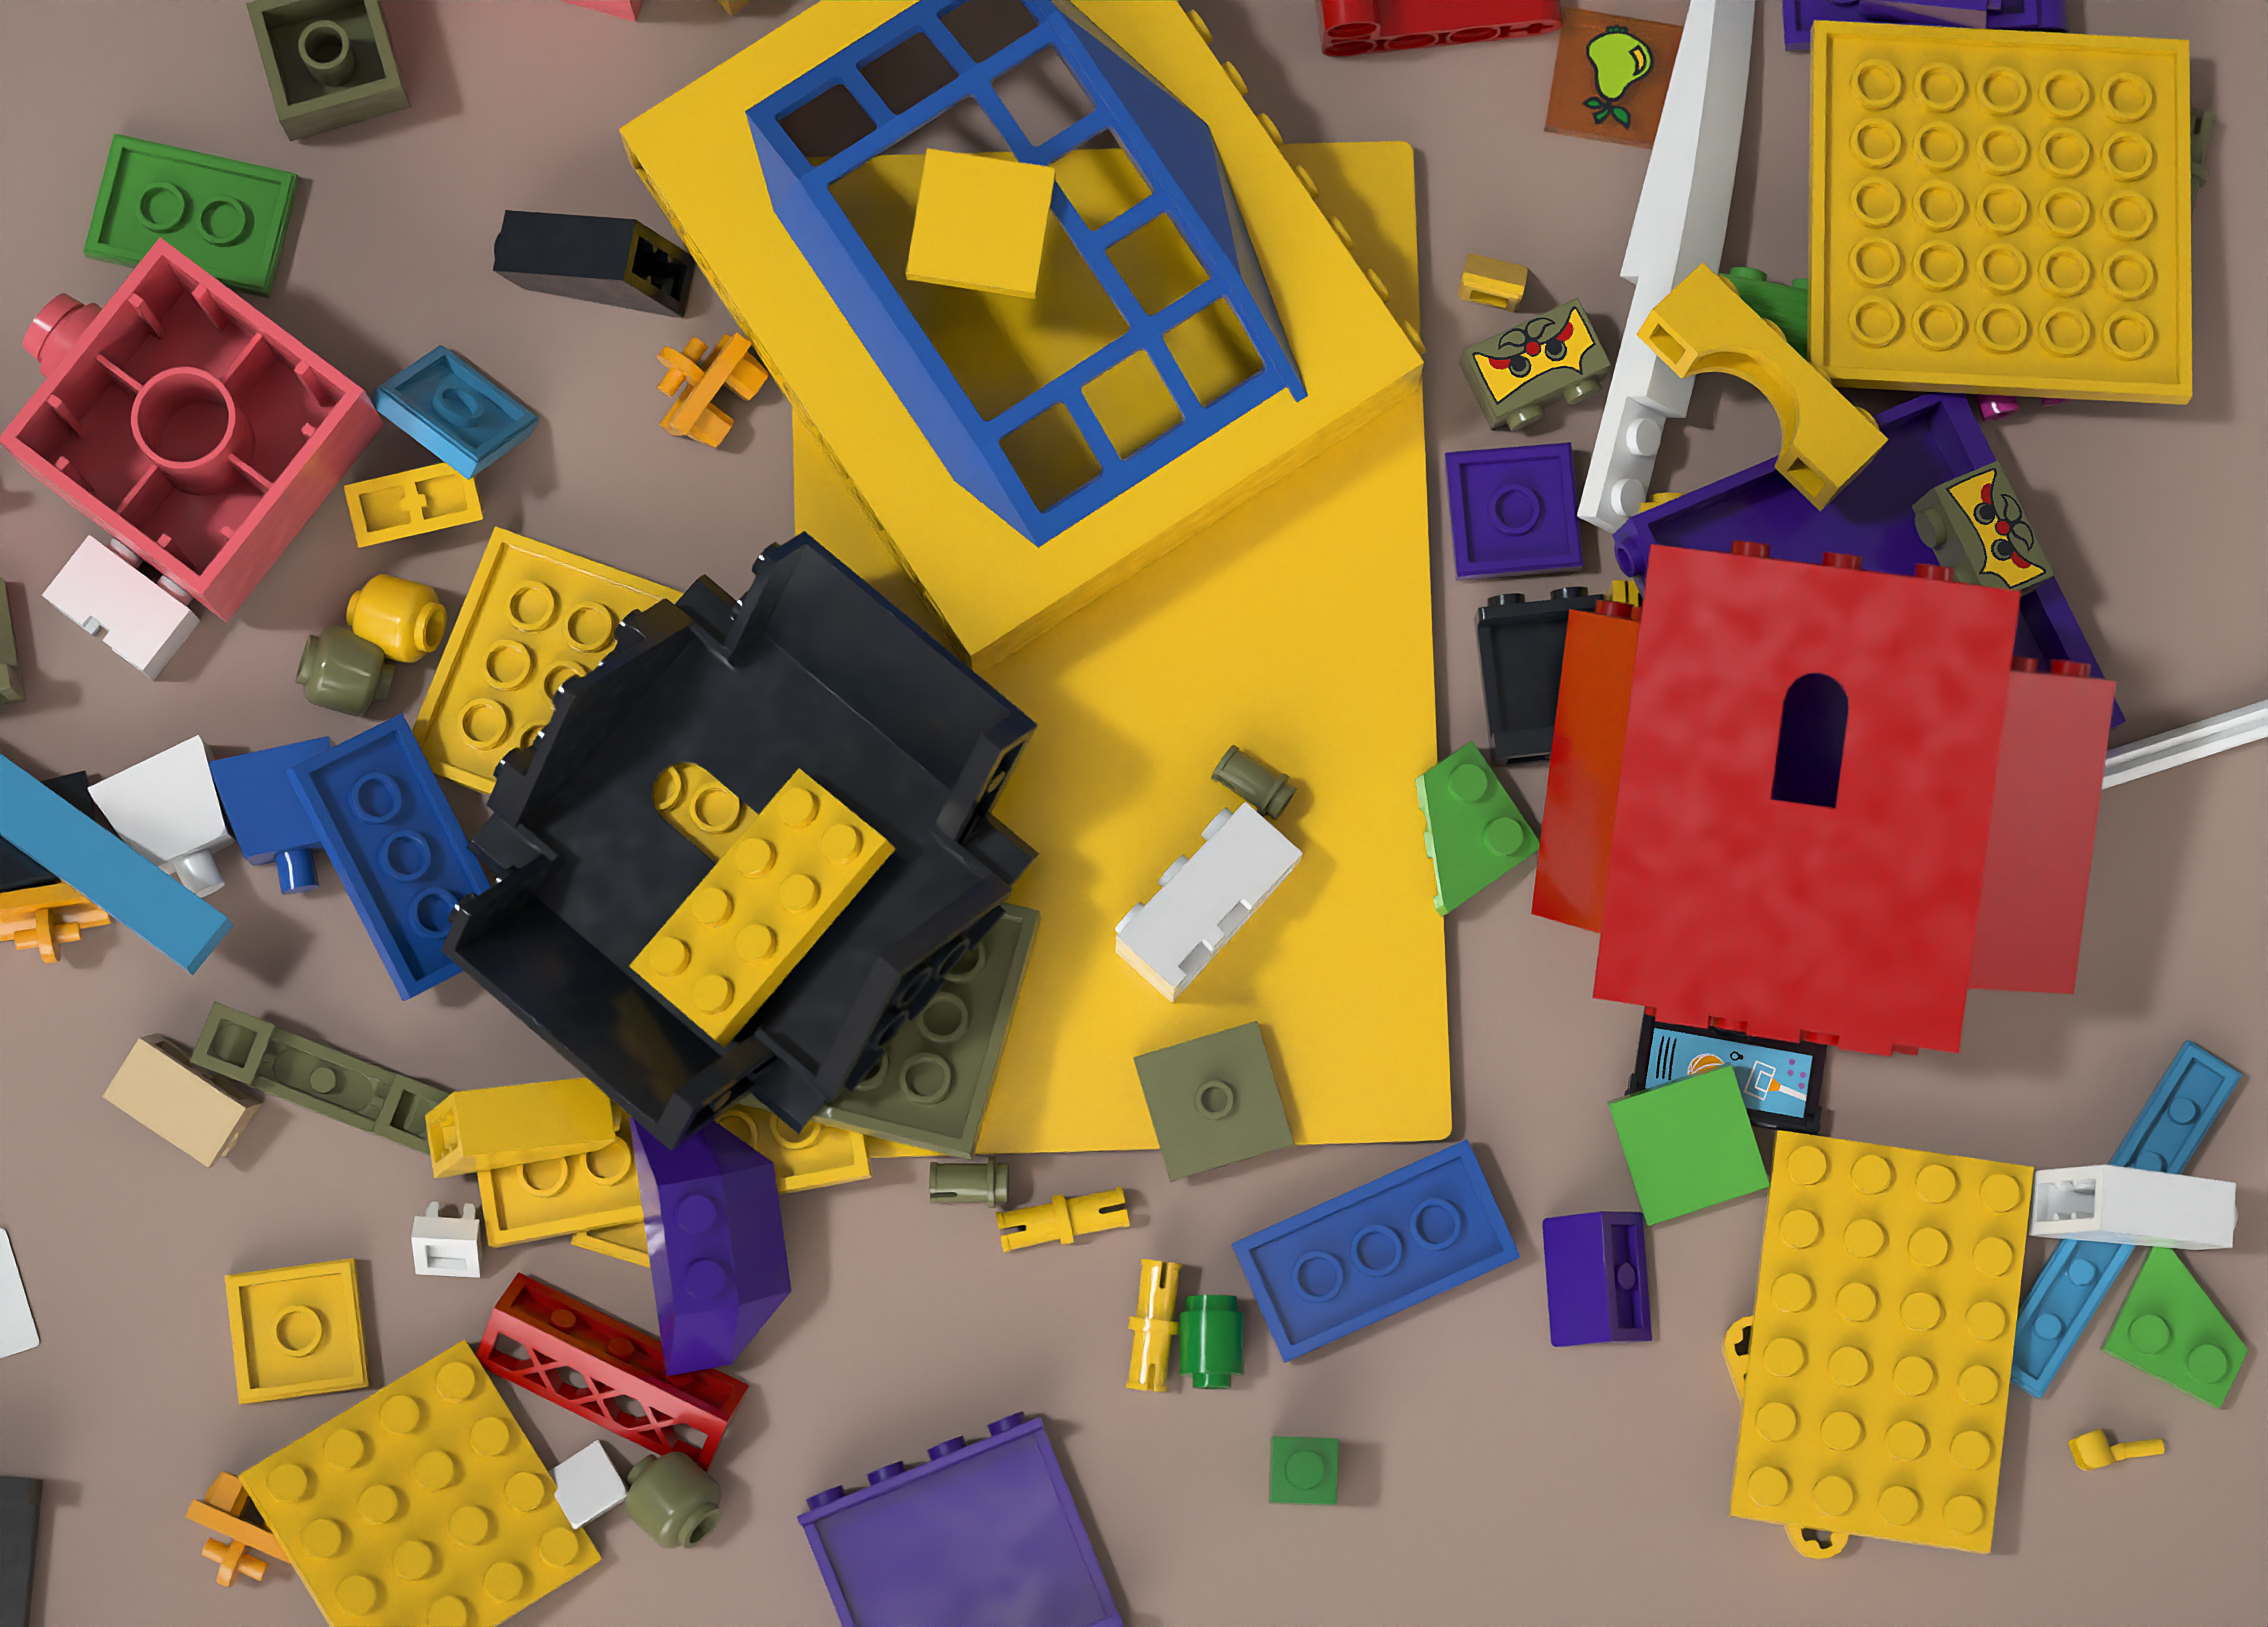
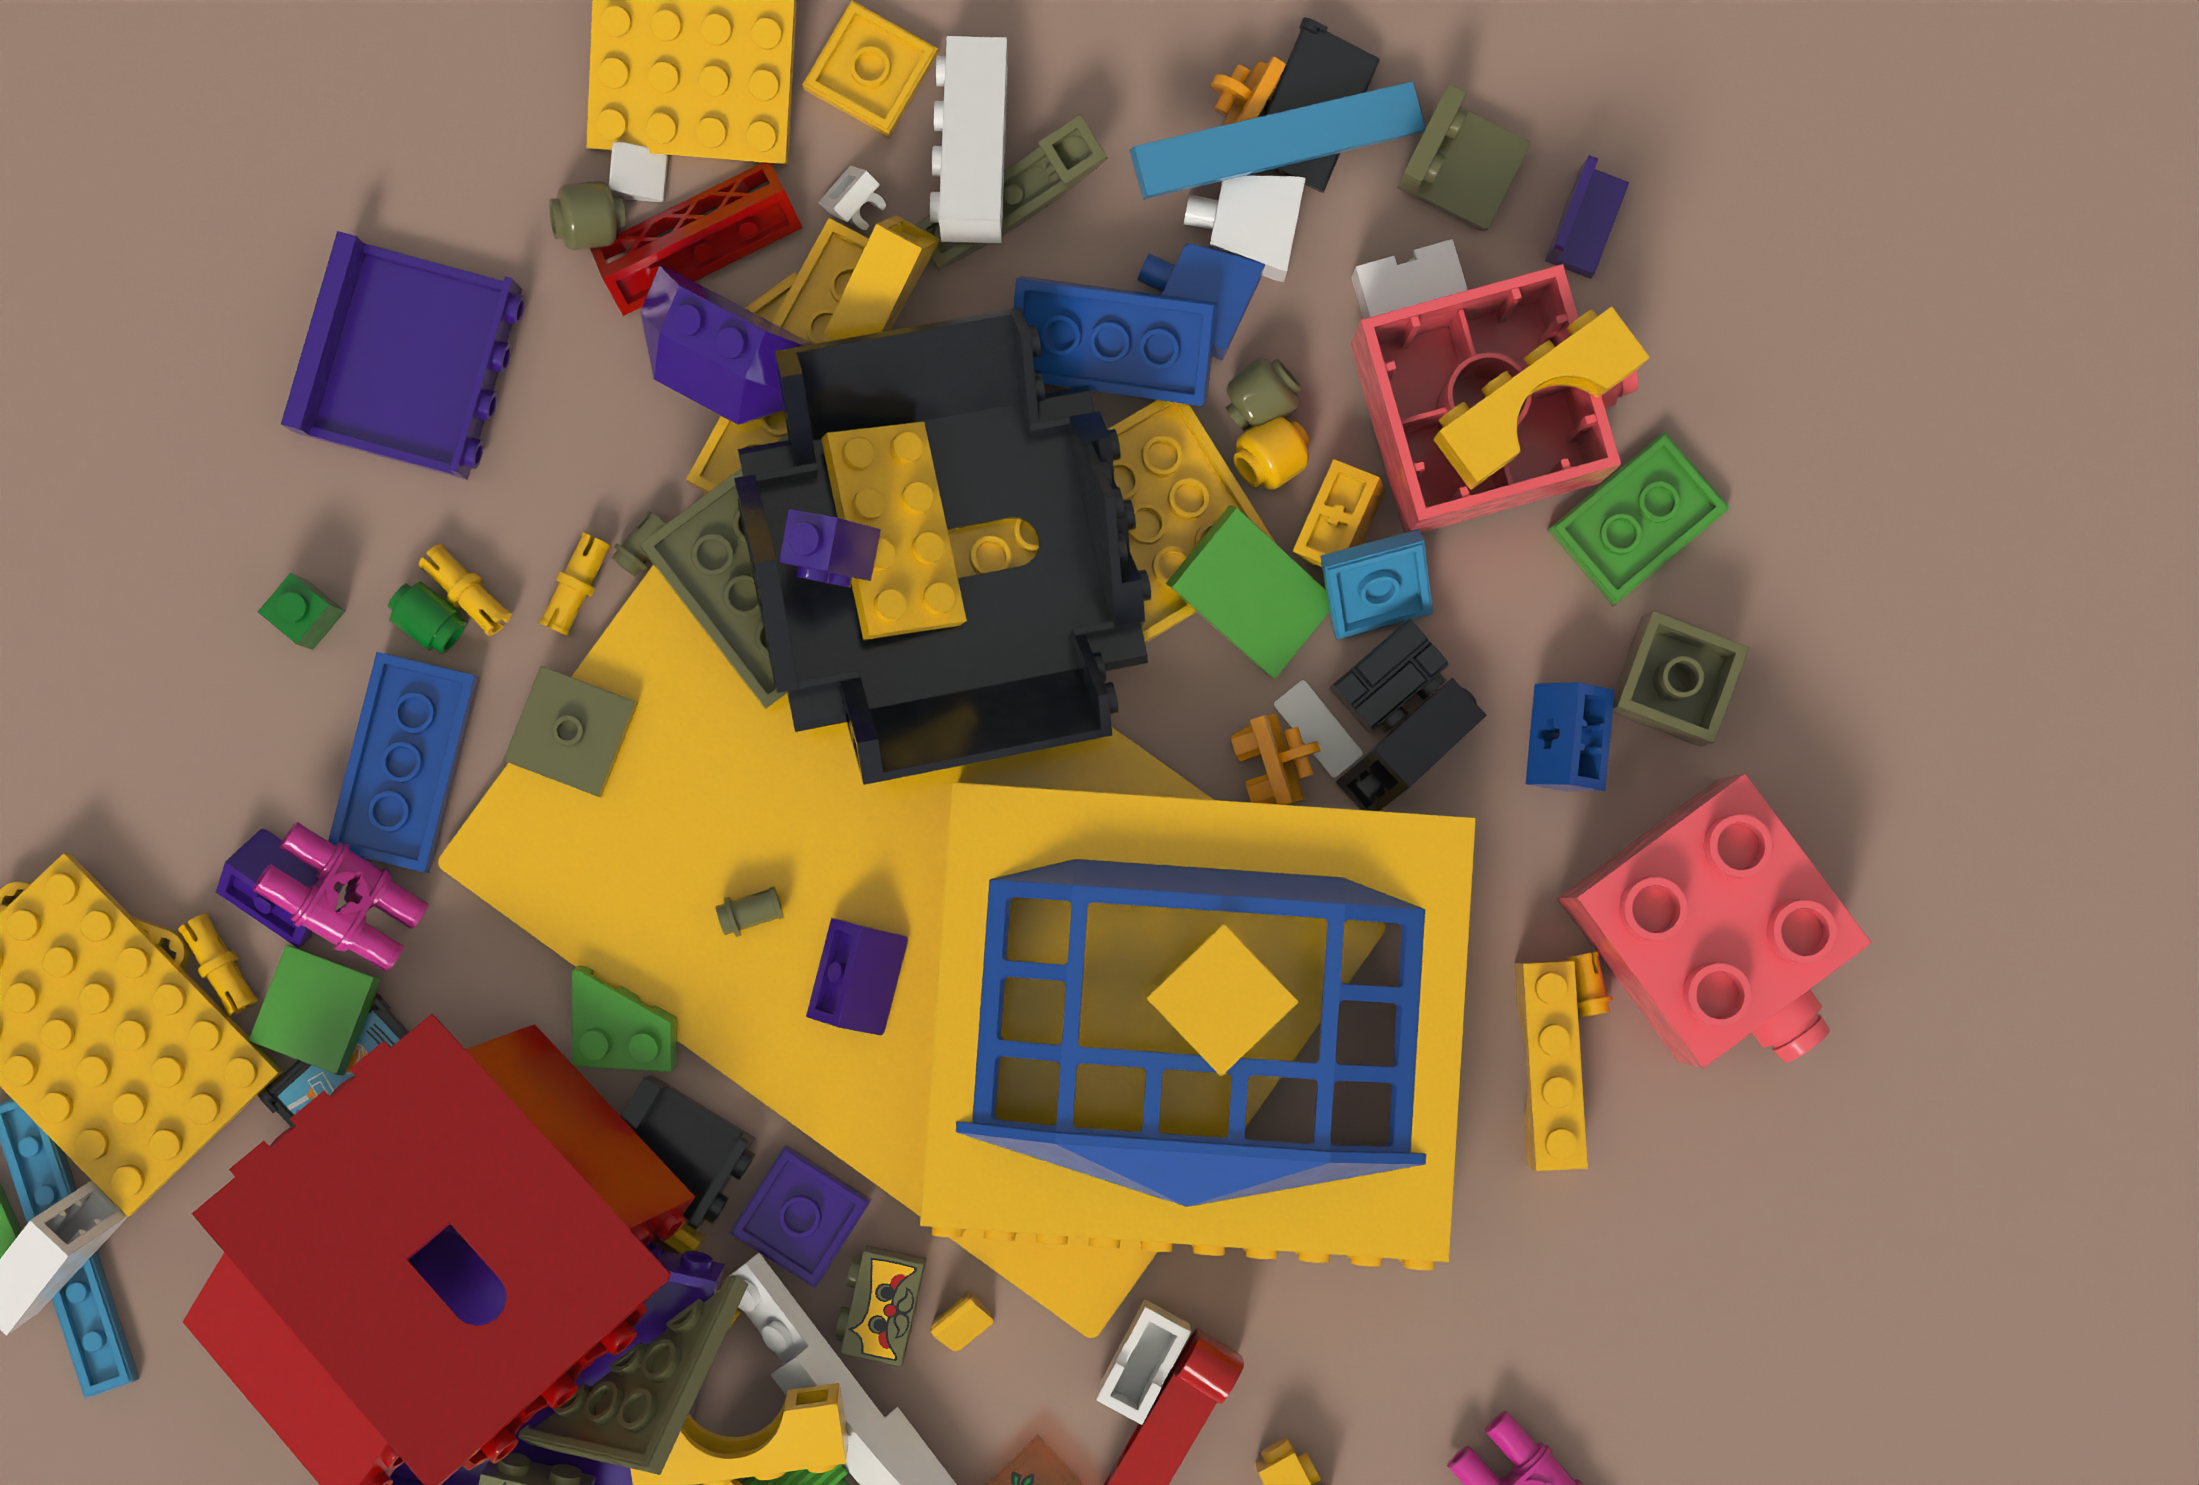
camera: 130 degrees right, 5 degrees up
(181, 1100) = (1063, 92): tan hinge -> none
(230, 380) = (1591, 359): none -> yellow arch
(296, 1155) = (972, 139): none -> white brick
(466, 116) = (1570, 736): none -> blue brick
(537, 335) = (1390, 677): none -> black brick
(555, 529) = (1251, 591): none -> bright green tile
(635, 393) = (1316, 723): none -> white sticker
(829, 929) = (829, 548): none -> dark purple brick
(1205, 900) = (694, 819): white wedge -> none
(1238, 630) = (857, 977): none -> dark purple panel
(1392, 75) = (1143, 1361): none -> white brick
(1554, 1196) = (316, 904): none -> dark pink pin
(1720, 1279) = (218, 964): none -> yellow pin
(1785, 487) = (645, 1399): none -> olive tile

